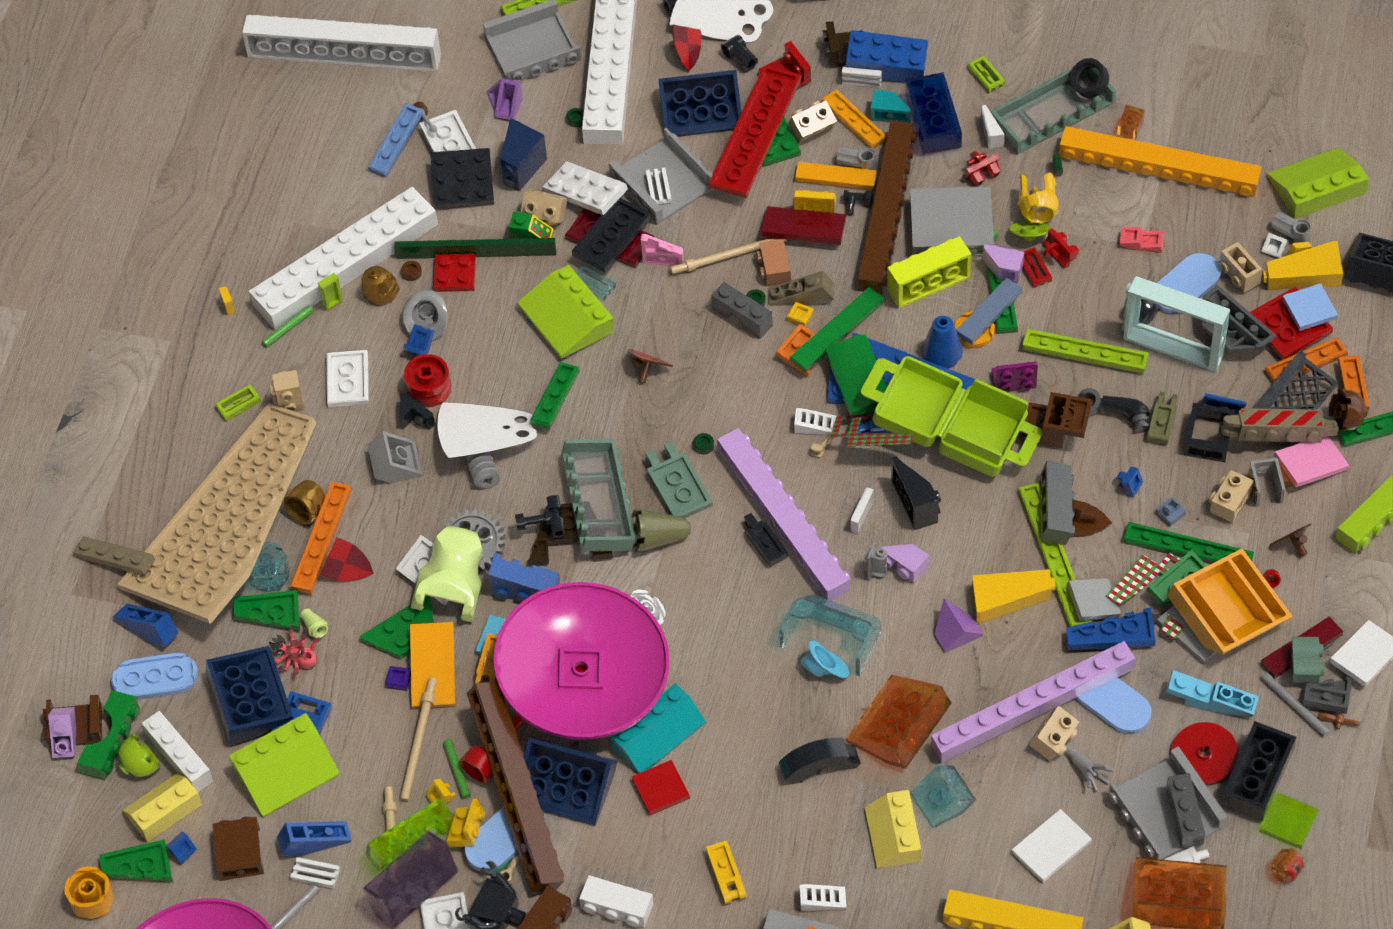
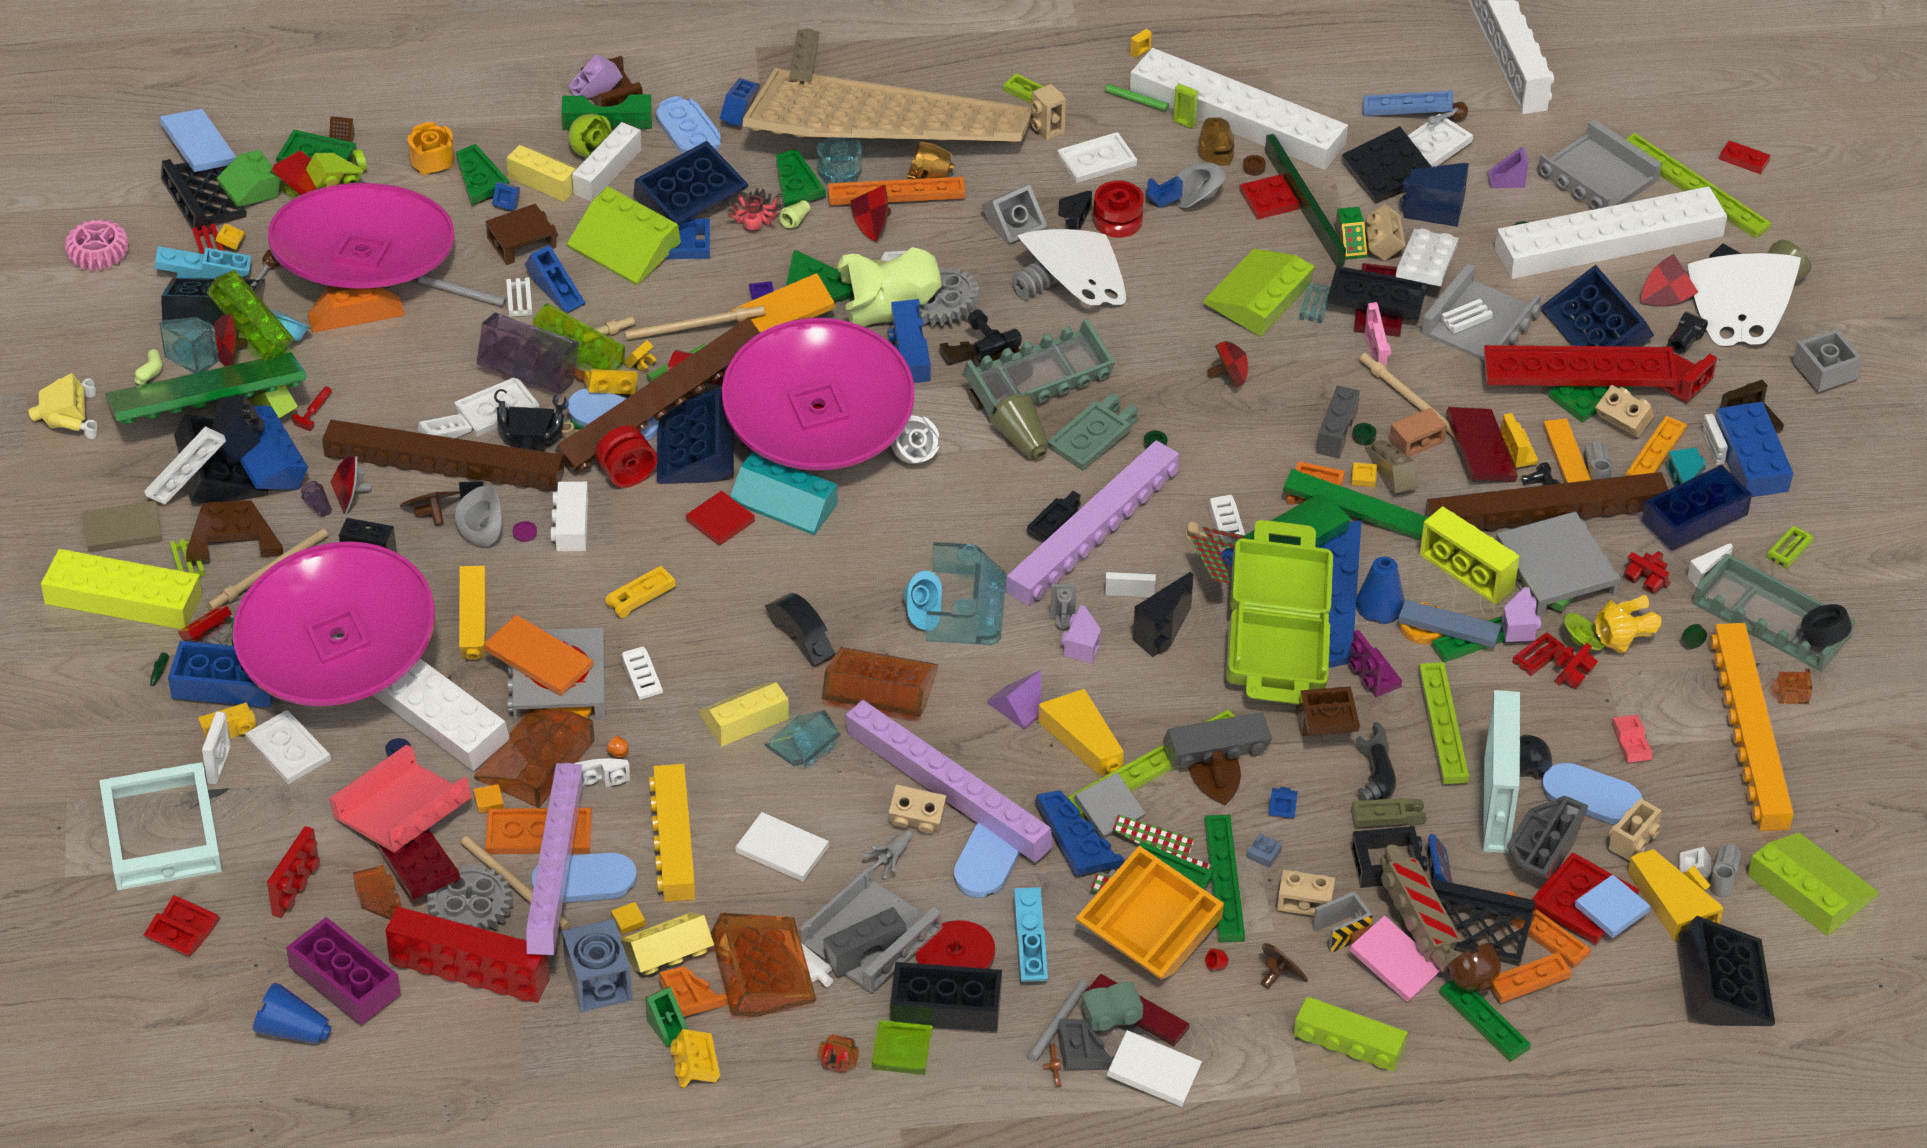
camera: 65 degrees right, 10 degrees down
(554, 395) = (1152, 309): green tile -> none
(571, 835) = (626, 456): none -> red wheel

